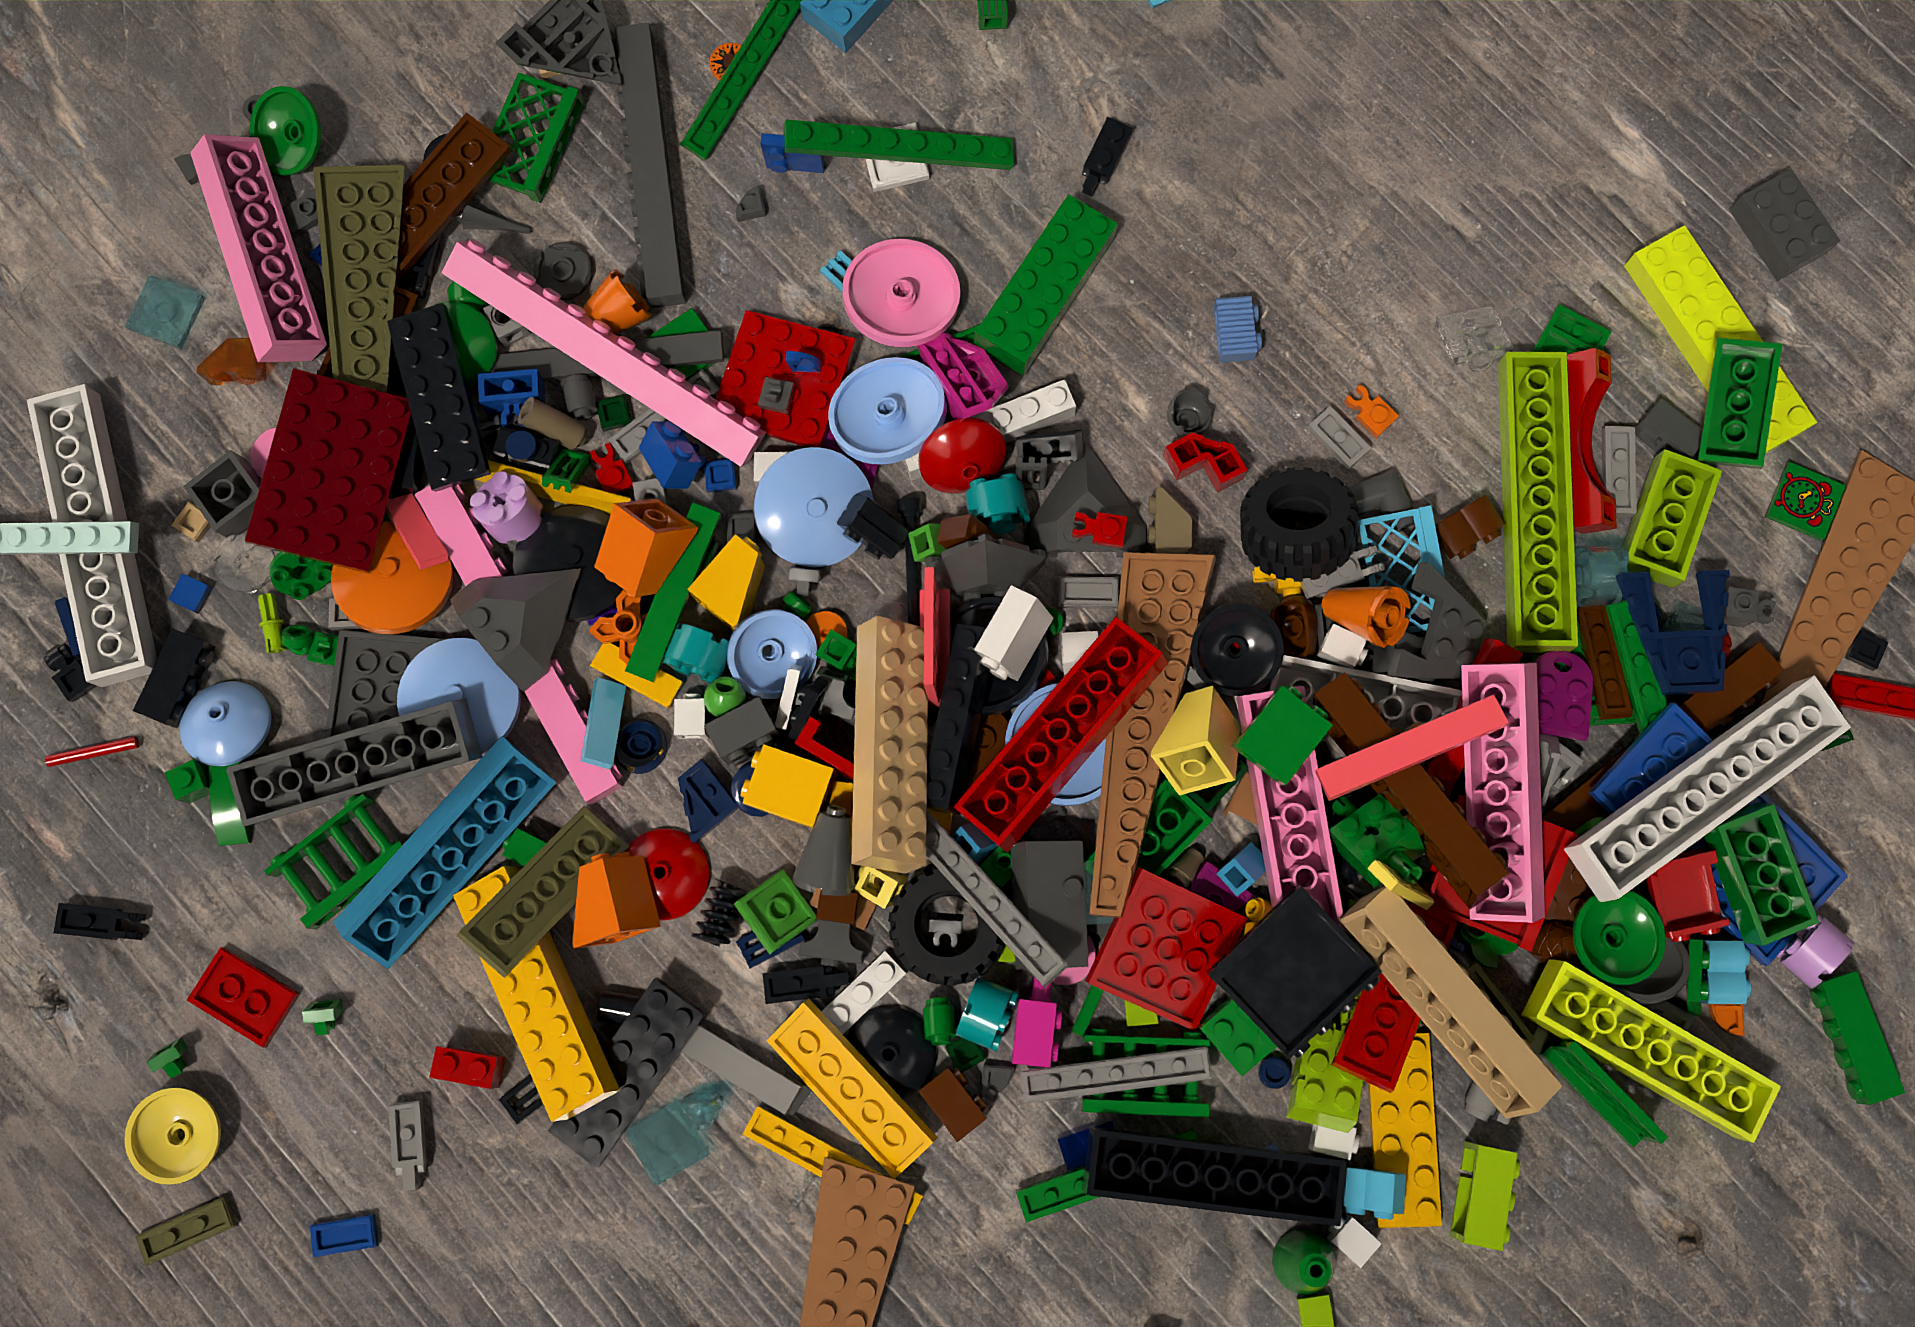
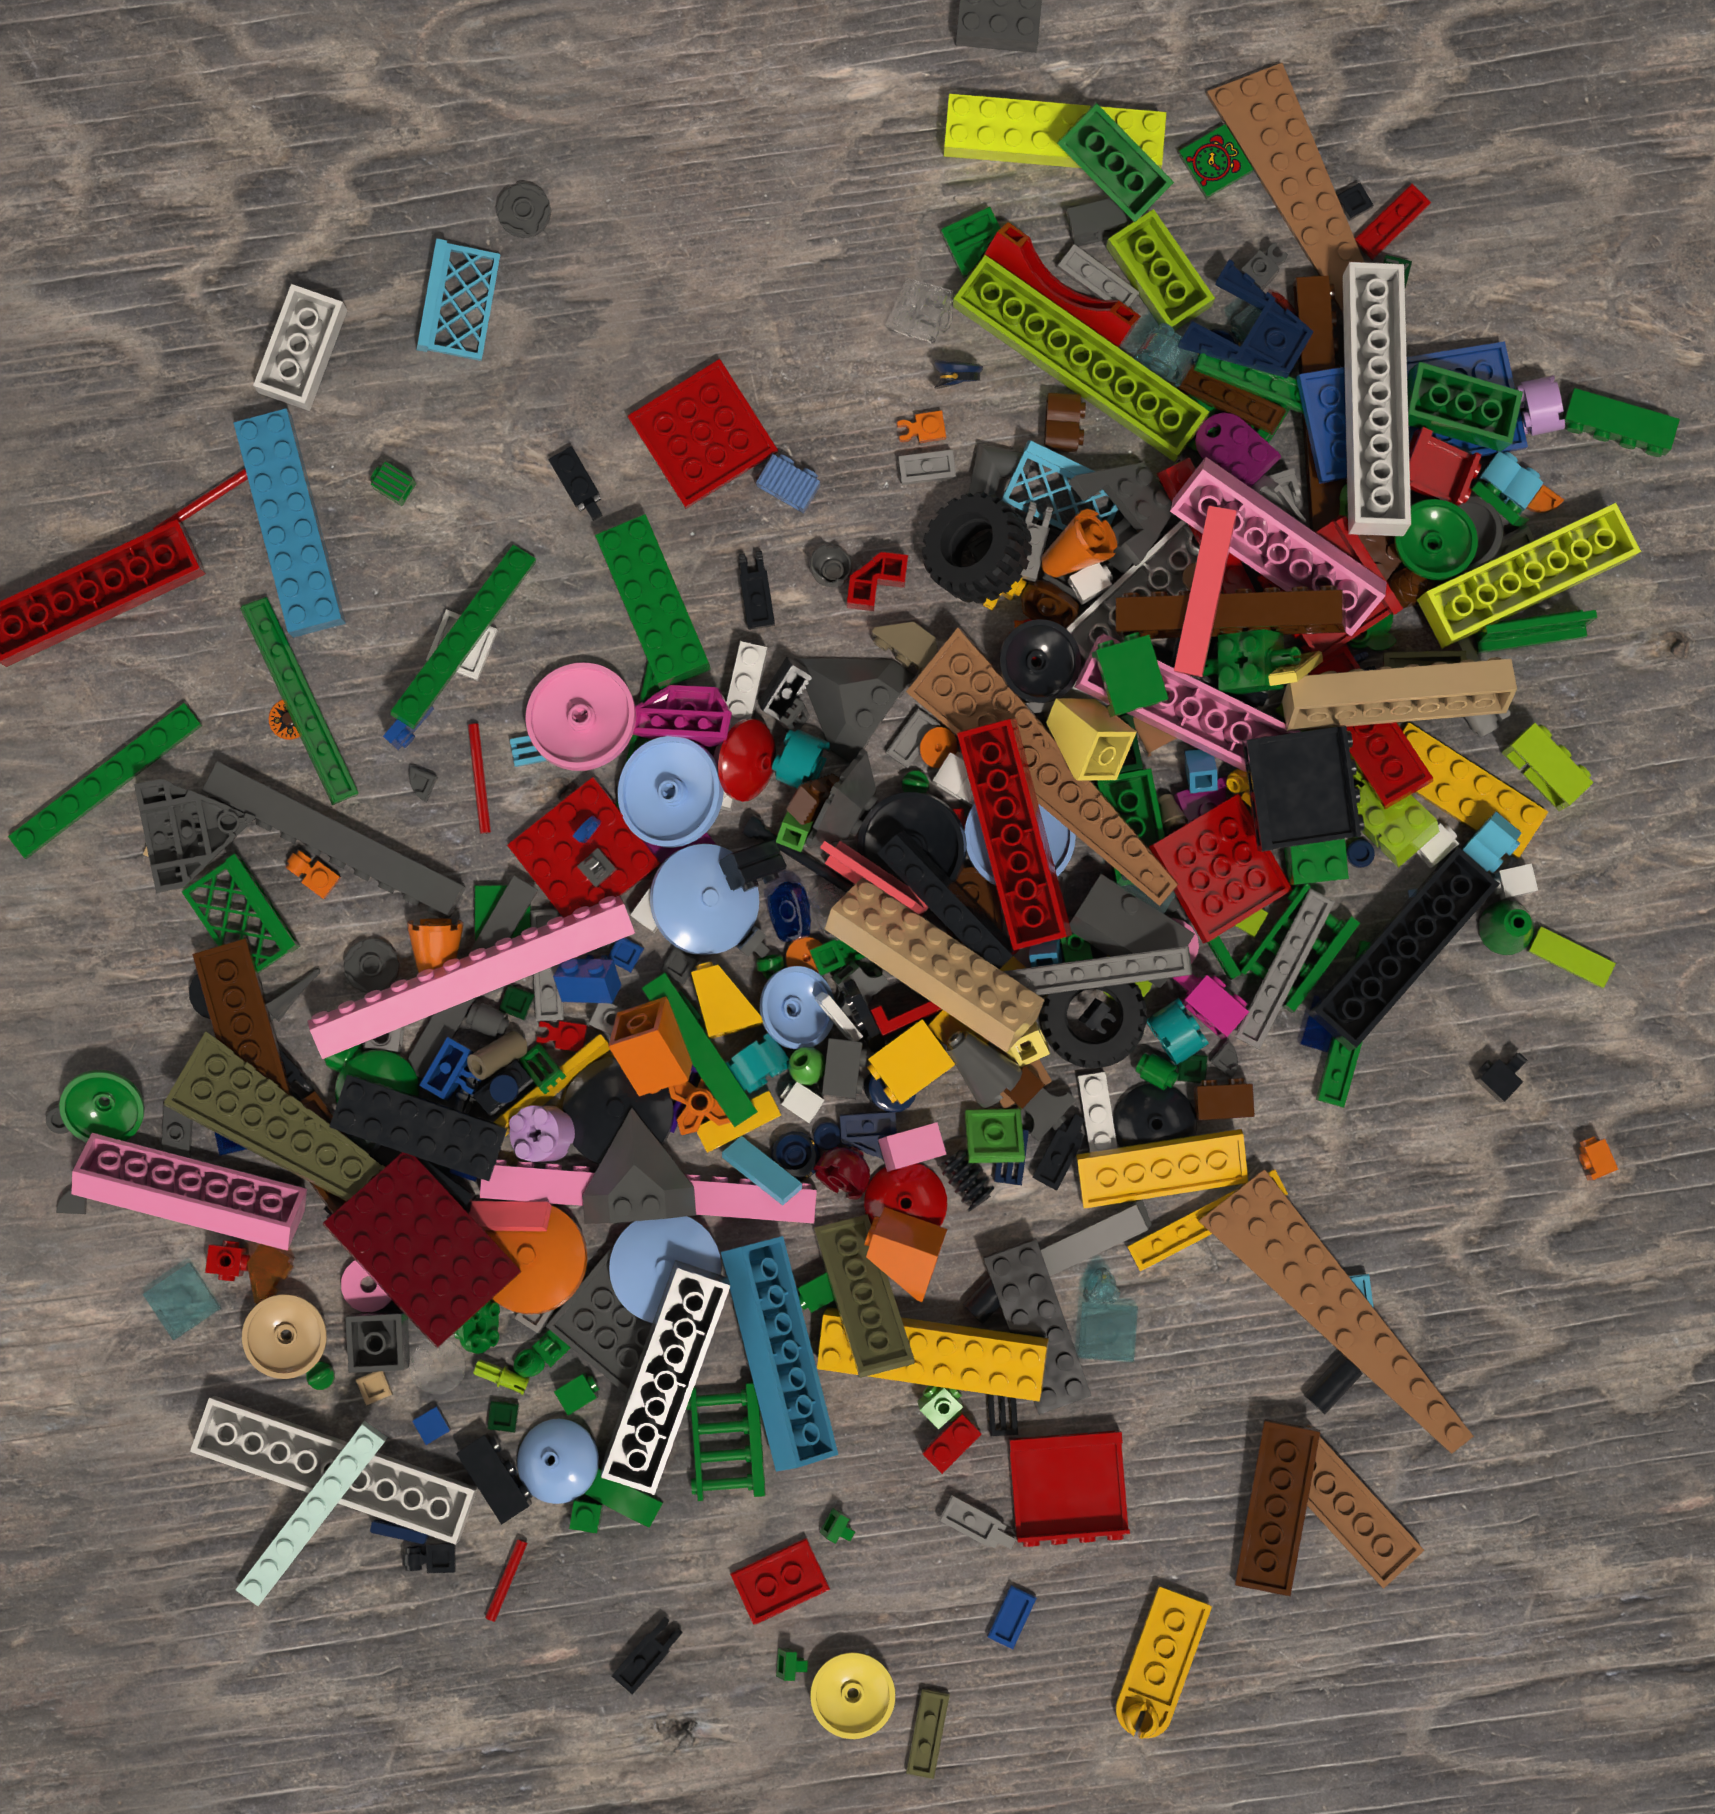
camera: 60 degrees left, 5 degrees up
(167, 409) = (264, 1340): none -> tan dish
(173, 470) = (321, 1376): none -> green tile
(220, 320) = (217, 1260): none -> red brick
(237, 650) = (503, 1416): none -> dark green tile
(297, 698) = (577, 1393): none -> green brick
(493, 1033) = (940, 1404): none -> brick
(497, 1207) = (1068, 1487): none -> red panel
(609, 176) = (318, 878): none -> orange plate
(653, 797) = (844, 1170): none -> dark red cylinder
(676, 761) = (827, 1136): none -> dark blue tile
(715, 843) = (912, 1146): none -> bright pink panel
(788, 249) = (479, 778): none -> red bar
(855, 589) = (790, 911): none -> clear blue piece
(1013, 634) = (915, 817): white brick -> none
(1094, 615) = (937, 745): none -> orange piece
(1105, 529) = (880, 693): red plate -> none
(1118, 368) = (756, 594): none -> black hinge
(1225, 228) = (702, 433): none -> red plate
(1442, 404) = (956, 372): none -> piece

